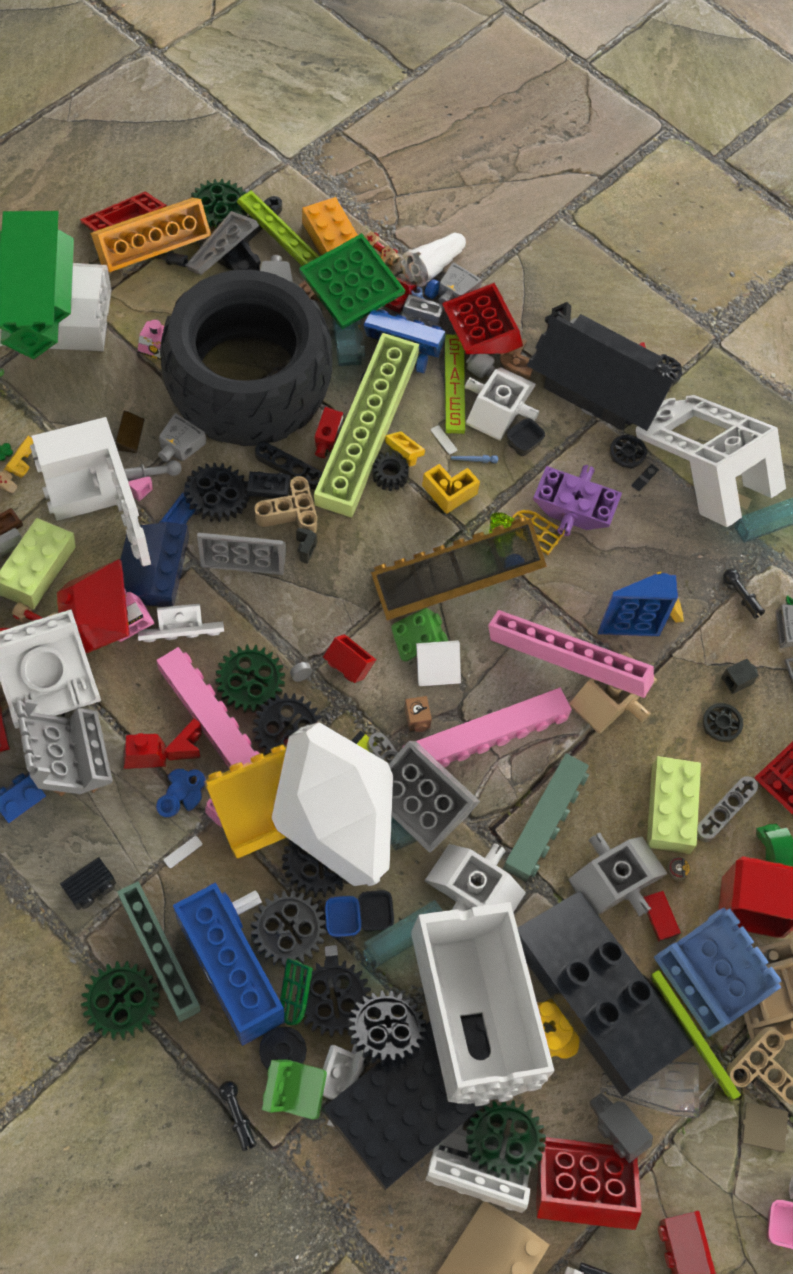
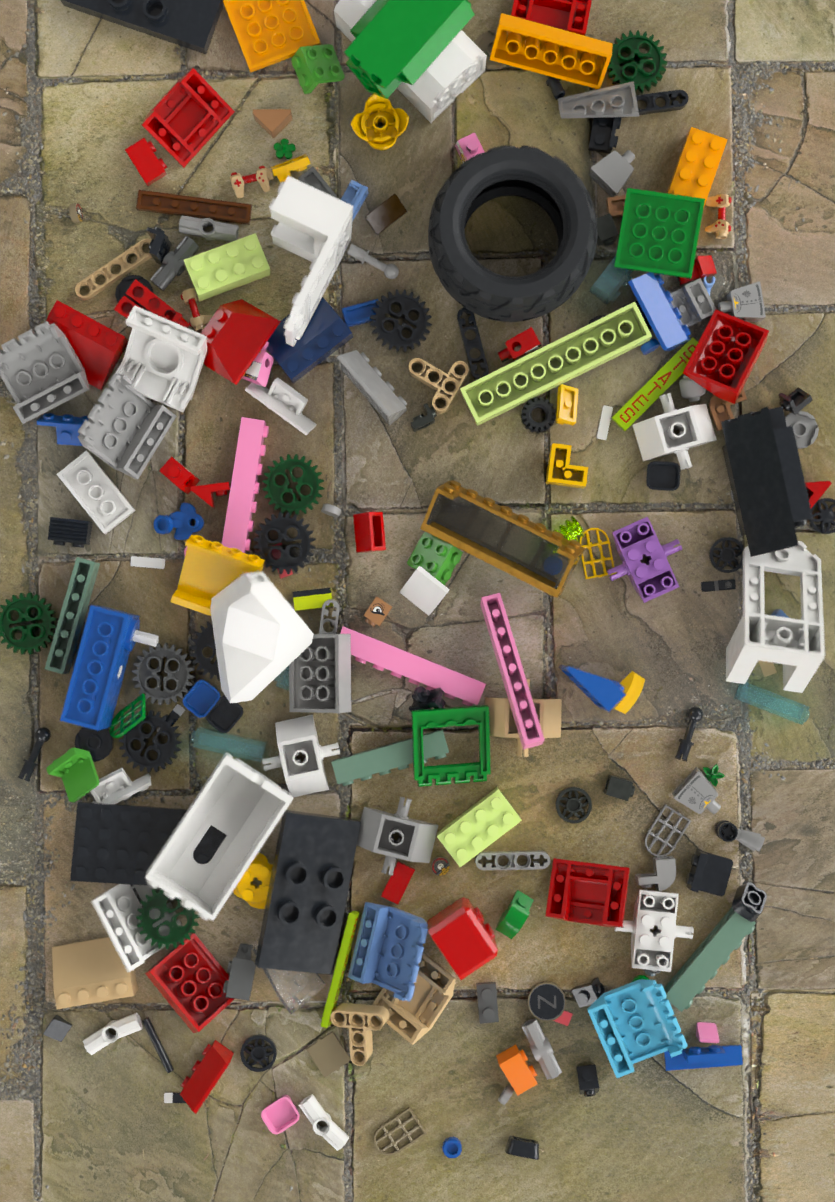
camera: 50 degrees right, 25 degrees up
(64, 375) = (380, 110): none -> yellow brick
(82, 831) = (96, 492): none -> white plate
(140, 487) = (351, 269): bright pink slope -> none
(180, 439) = (413, 253): light grey torso -> none
(268, 484) = (439, 349): black bracket -> none
(277, 228) = (657, 132): lime tile -> none
(387, 1028) = (169, 778): black gear -> none
(430, 259) = (746, 262): white cone -> none
(432, 289) = (723, 288): blue tile -> none
(484, 459) = (623, 472): medium blue piece -> none
(527, 741) = (426, 699): none -> black hips
(561, 737) = (447, 718): none -> green hinge
(708, 1189) = (258, 1053): none -> black wheel

